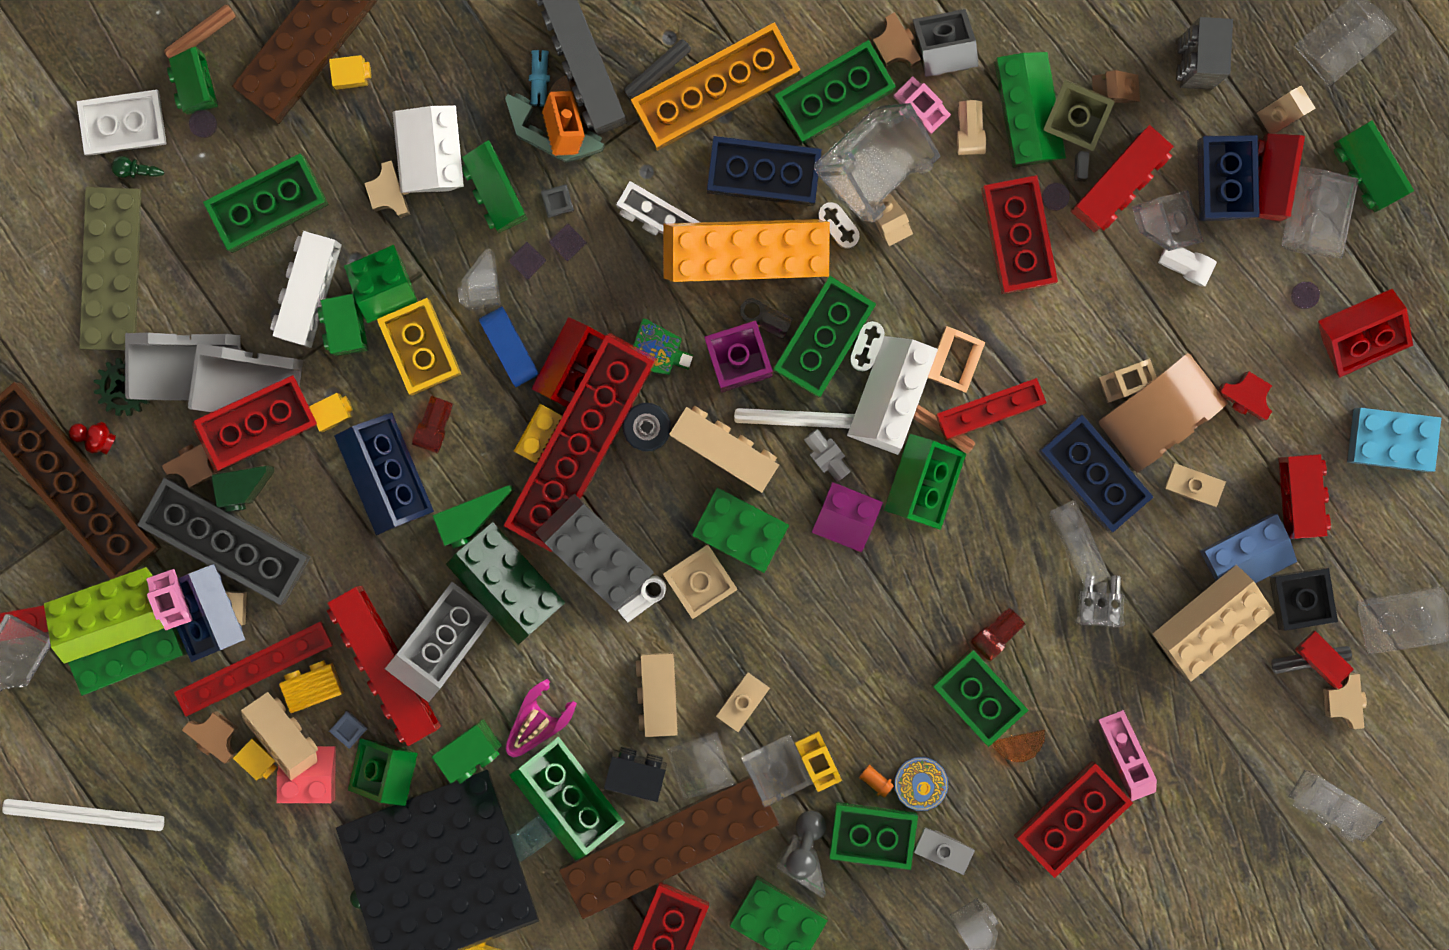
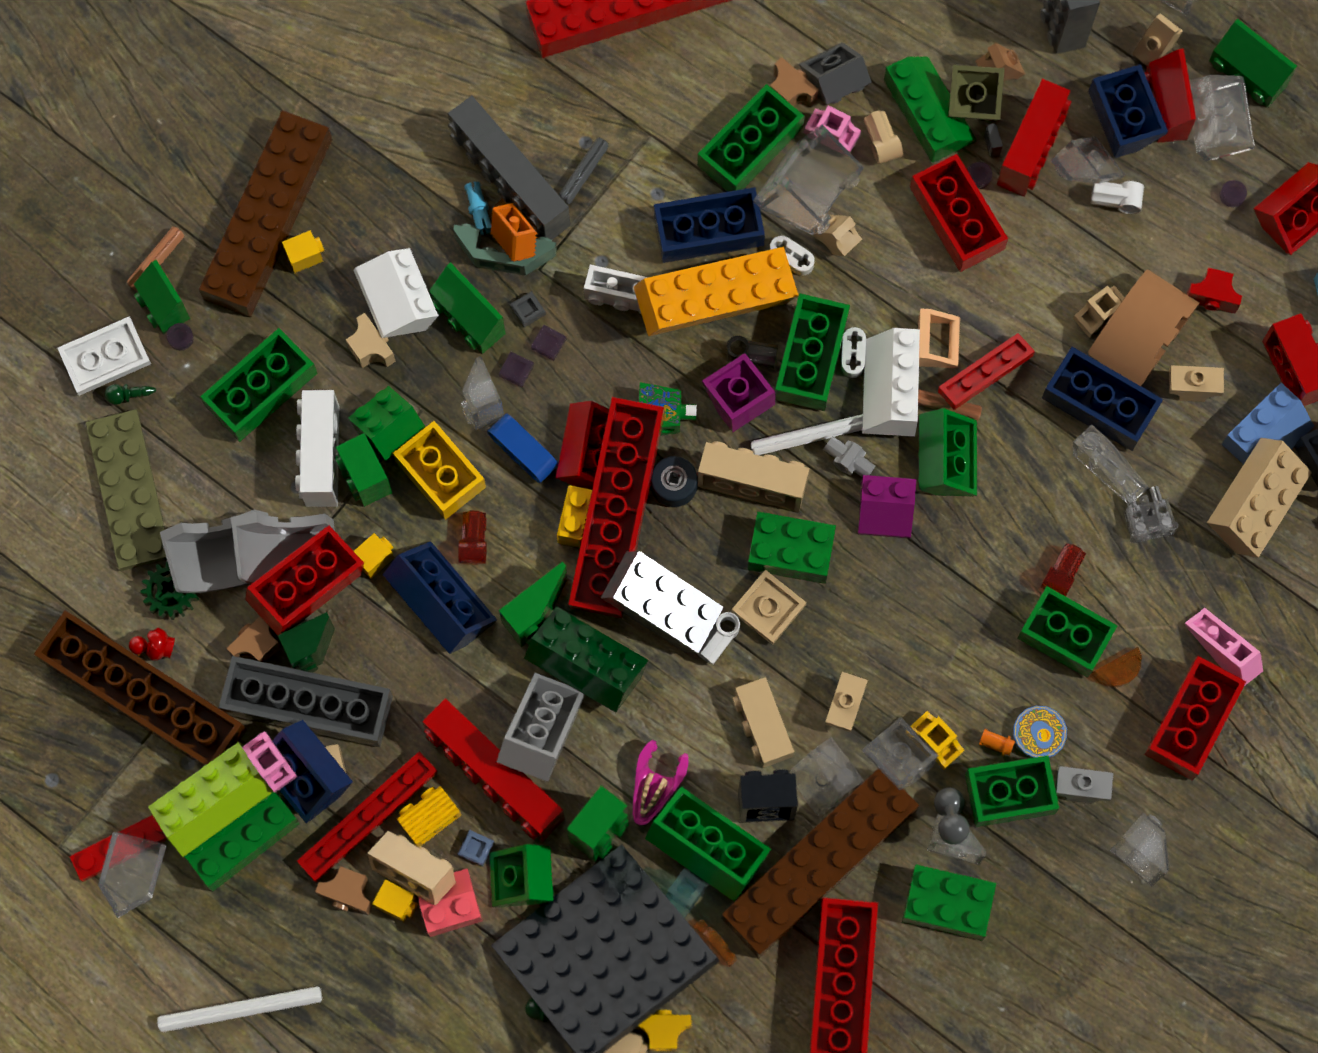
camera: 15 degrees left, 15 degrees down
(547, 888) = (716, 942): none -> clear orange tile
(715, 86) = (641, 166): light orange brick -> none

